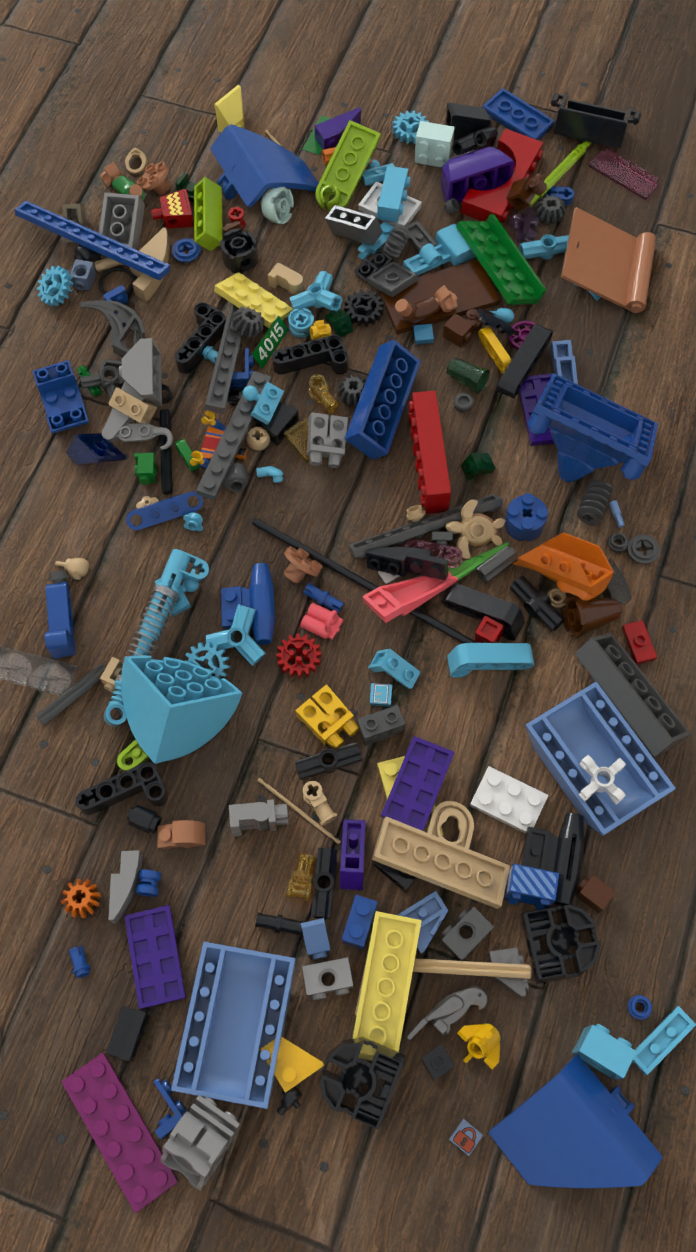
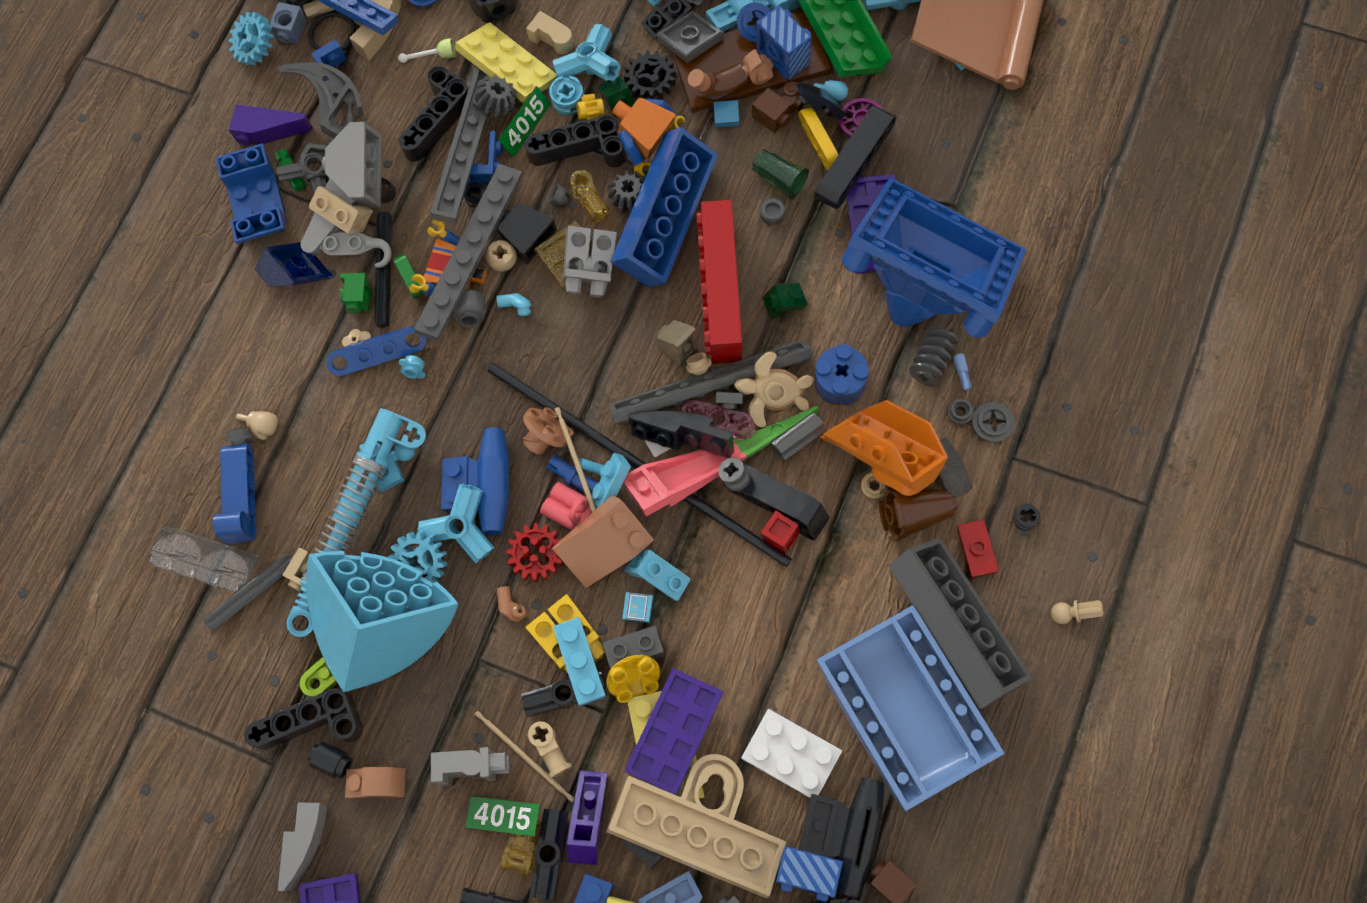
camera: 10 degrees right, 5 degrees up
(62, 347) = (264, 125): none -> dark purple slope
(74, 894) = (242, 850): orange gear -> none
(148, 883) = (334, 837): blue wheel -> none
(205, 292) = (444, 48): none -> hinge
(210, 354) = (445, 135): medium azure pin -> none
(266, 401) = (511, 208): medium azure plate -> none
(278, 698) = (507, 607): none -> nougat arm
(285, 855) = (502, 816): none -> green sticker
(300, 395) = (559, 196): none -> dark grey hinge
(329, 590) = (575, 459): none -> tan piece
(340, 734) = (579, 661): none -> medium azure plate
(352, 644) = (603, 542): none -> nougat slope
(354, 598) = (611, 475): none -> medium azure plate
(363, 343) = (644, 128): none -> orange torso
(382, 745) = (633, 677): none -> yellow dish
(399, 496) = (677, 341): none -> dark tan slope
(445, 260) = (745, 15): none -> blue gear
(454, 594) = (739, 479): none -> dark grey wheel
(465, 280) = (783, 42): none -> blue container
(489, 657) = (780, 564): medium azure beam -> none
(537, 603) = (847, 492): black piece -> none
(563, 360) = (908, 159): medium blue slope -> none
(610, 788) = (918, 752): white pin -> none
(678, 622) = (1029, 524): none -> black bush

